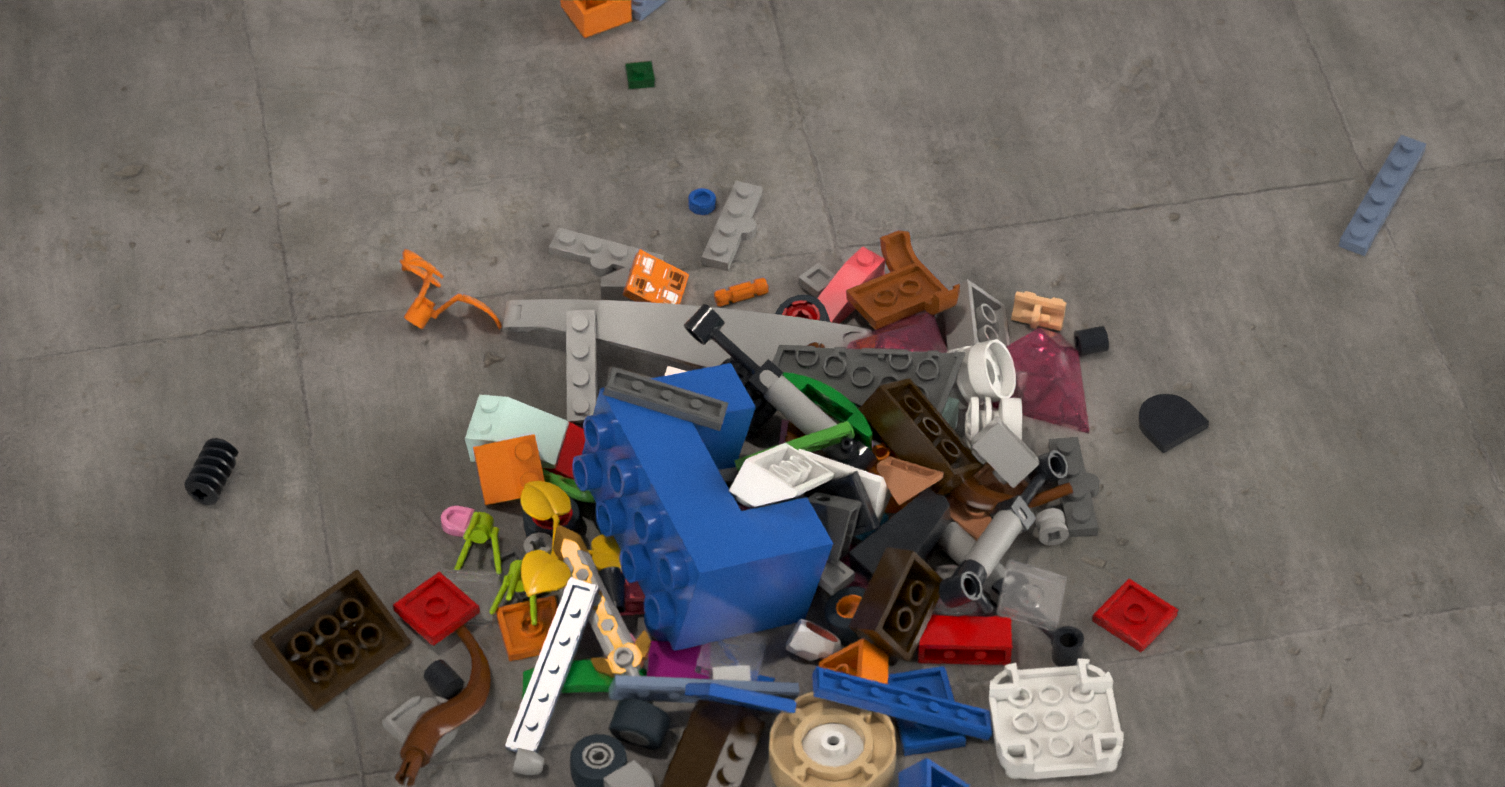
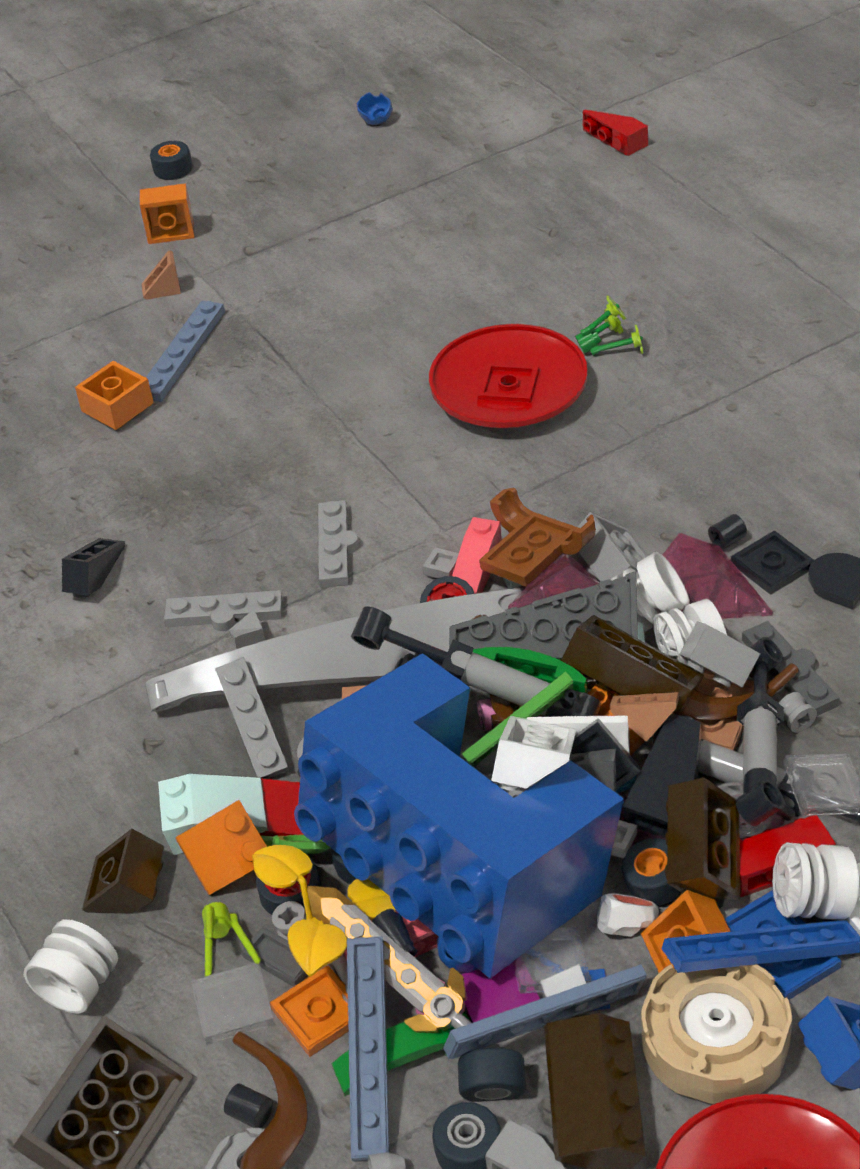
camera: 15 degrees left, 5 degrees down
(348, 522) = (71, 966): none -> white wheel
(422, 307) = (60, 717): orange plant -> none
(422, 464) = (124, 875): none -> dark brown slope
(436, 608) = (206, 1027): red tile -> none
(456, 520) = (186, 922): bright pink tile -> none
(503, 172) = (89, 566): none -> black slope
(514, 582) = (284, 964): lime plant -> none
(640, 75) = (182, 444): dark green plate -> none
(654, 280) = (284, 613): orange tile -> none
(665, 398) = (378, 709): dark grey tile -> none
(702, 201) = (294, 532): blue tile -> none
(741, 292) = (373, 597): orange axle -> none
(741, 697) = (597, 1004): blue tile -> none
(948, 89) = (541, 365): none -> red dish
(978, 670) = (815, 881): none -> white wheel
(1038, 311) = (664, 521): light nougat hips -> none
(1075, 96) = (589, 336): none -> green plant
(1116, 383) = (772, 562): none -> black tile

